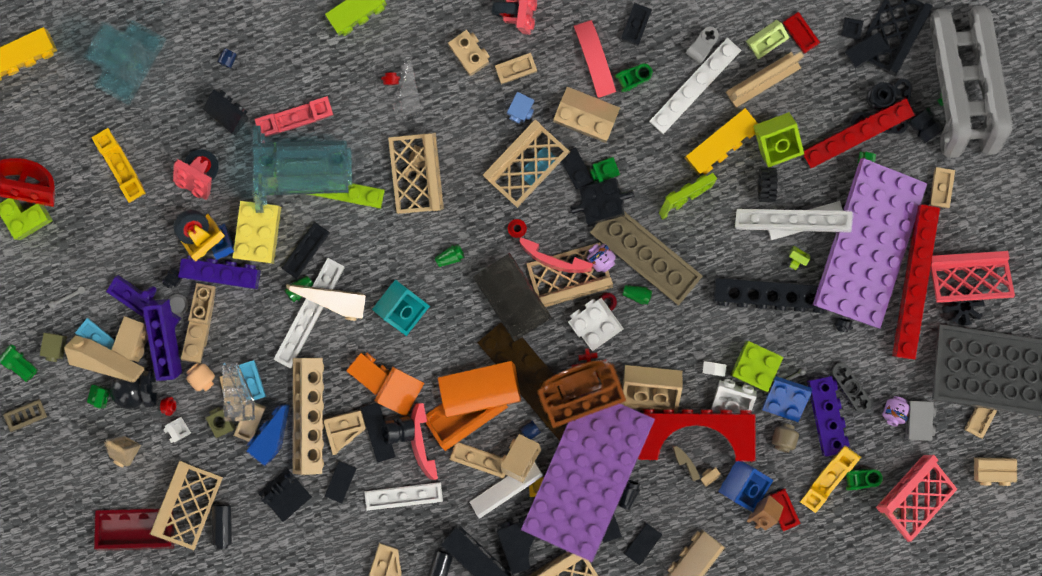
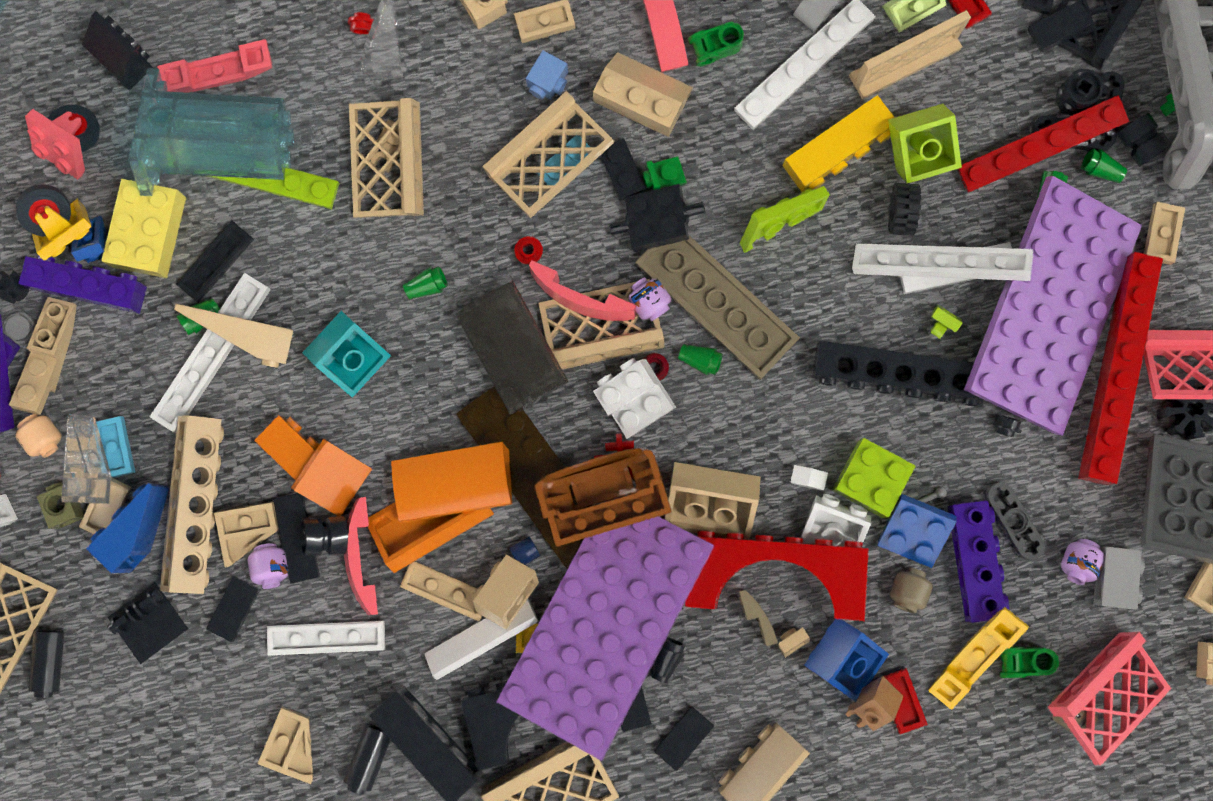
camera: 15 degrees right, 5 degrees down
(361, 452) = (267, 565): none -> lavender head
(898, 144) = (1103, 166): none -> green cone

